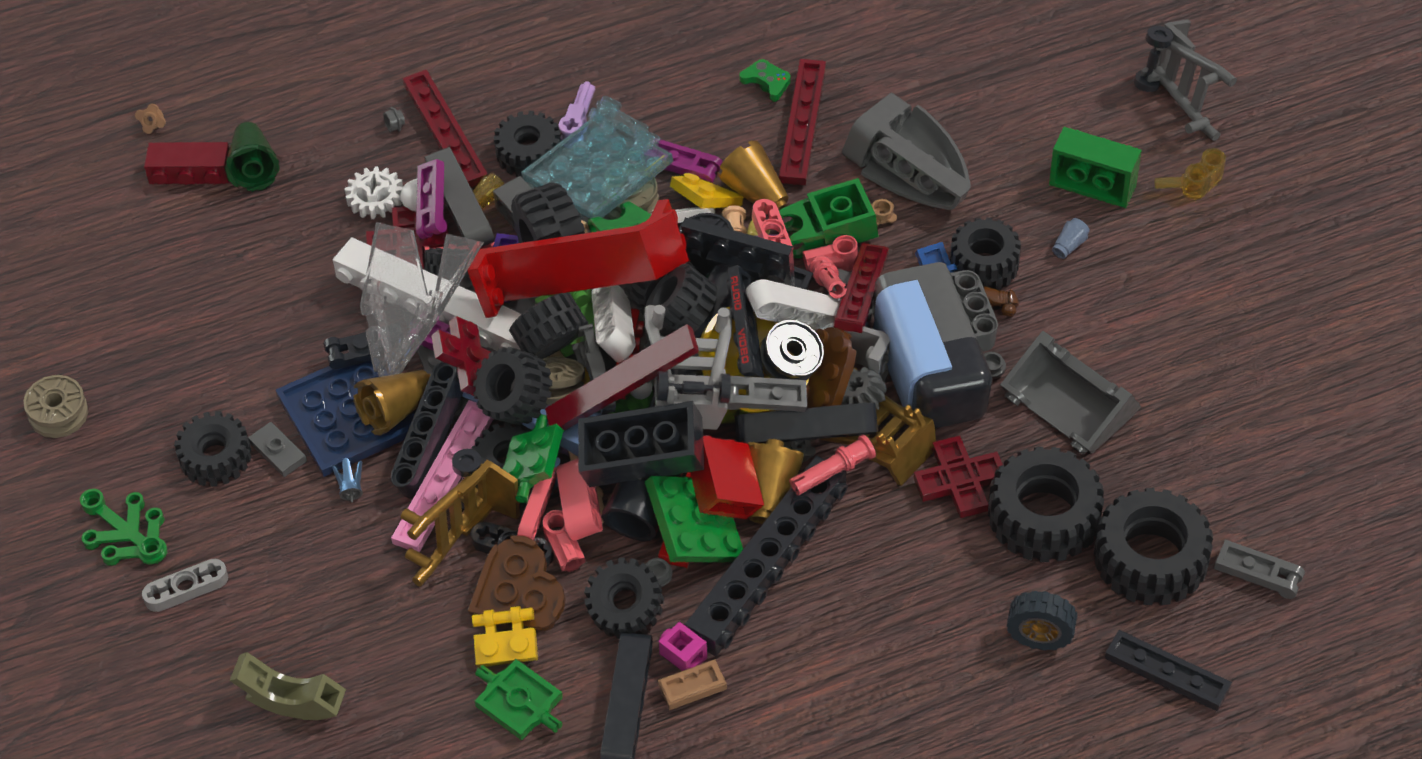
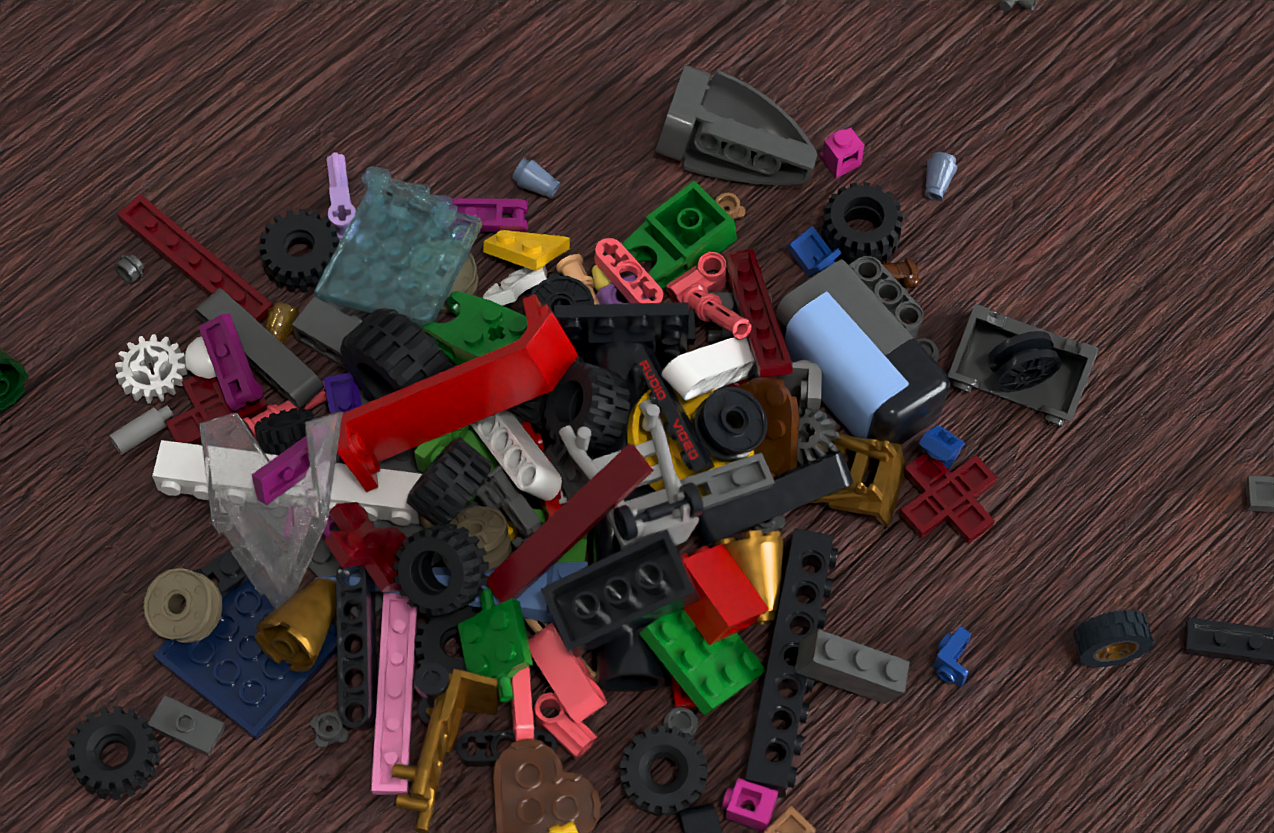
camera: 25 degrees left, 10 degrees up
(310, 357) = (164, 602): none -> dark tan wheel
(343, 232) = (140, 429): none -> light grey cylinder
(349, 487) = (293, 741): flat silver piece -> none
(378, 480) = (326, 720): none -> dark grey plate
(418, 281) = (282, 472): none -> magenta plate
(732, 139) = (534, 178): none -> sand blue cone
(752, 175) = (576, 214): pearl gold cone -> none
(768, 76) = (532, 83): green piece -> none
(802, 122) = (593, 126): dark red plate -> none
(812, 570) = (852, 666): none -> dark grey brick
(844, 459) = (829, 525): coral pin -> none
(903, 591) = (950, 650): none -> blue bracket
(970, 434) = (941, 445): none -> blue bracket
(996, 189) = (840, 146): none -> dark pink brick
(1045, 473) = (1063, 463): black tyre -> none
(1068, 390) = (1023, 361): none -> black wheel
(1095, 167) = (934, 84): green brick -> none
(1157, 515) = (1193, 474): black tyre -> none
(1198, 177) = (1042, 54): clear yellow beam -> none

